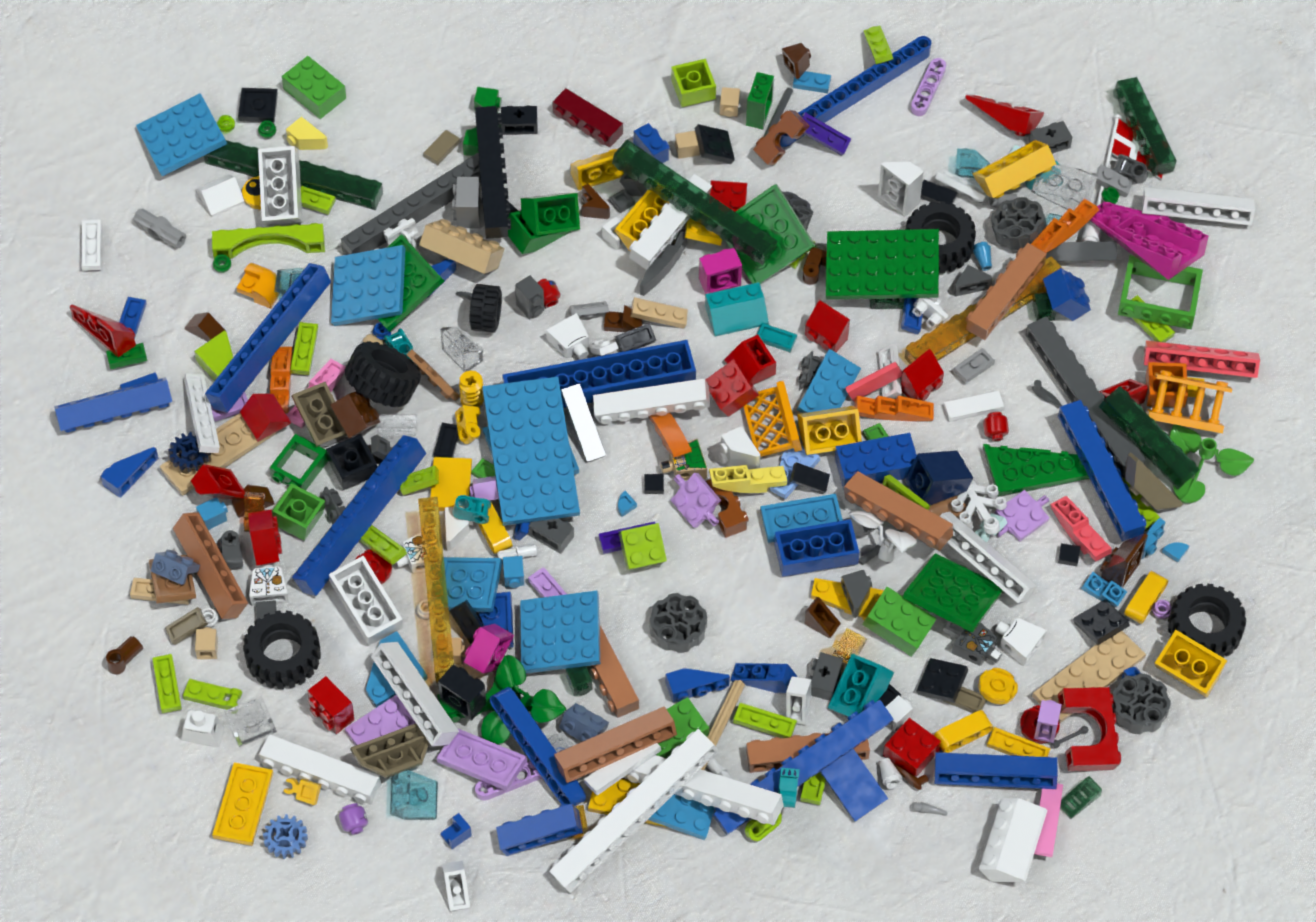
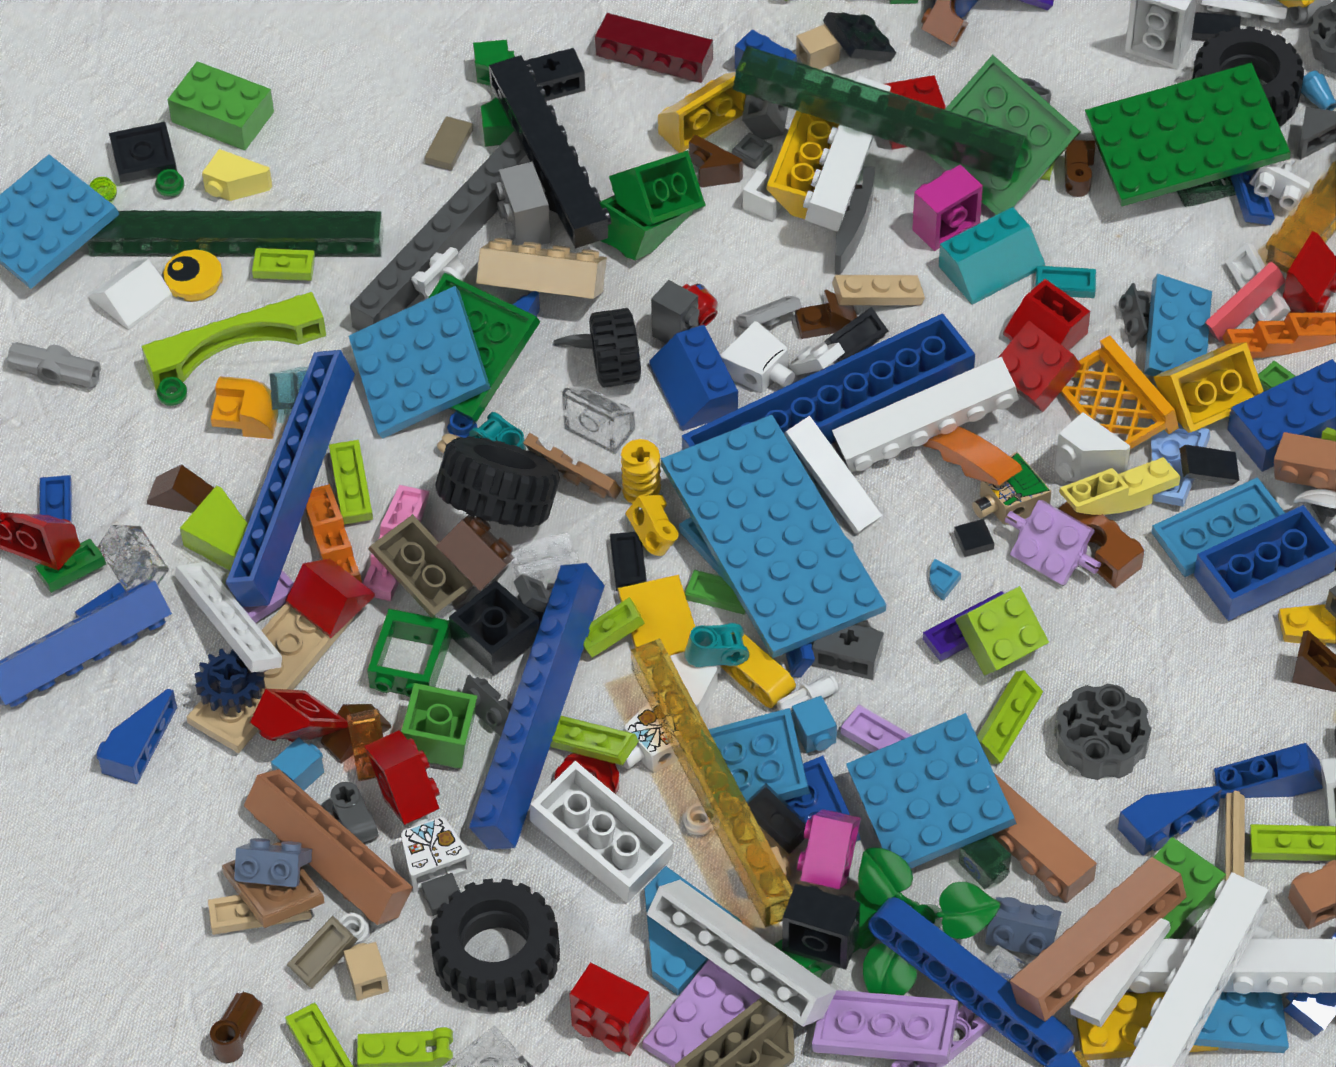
camera: 15 degrees left, 5 degrees down
(162, 360) = (131, 556): none -> clear brick
(280, 185) = (226, 252): white brick -> none
(485, 488) = (720, 610): lavender brick -> none
(527, 339) = (694, 378): none -> blue slope
(627, 598) = (1009, 716): none -> lime plate
(697, 231) = (893, 157): yellow plate -> none
(827, 327) = (1140, 243): red slope -> none

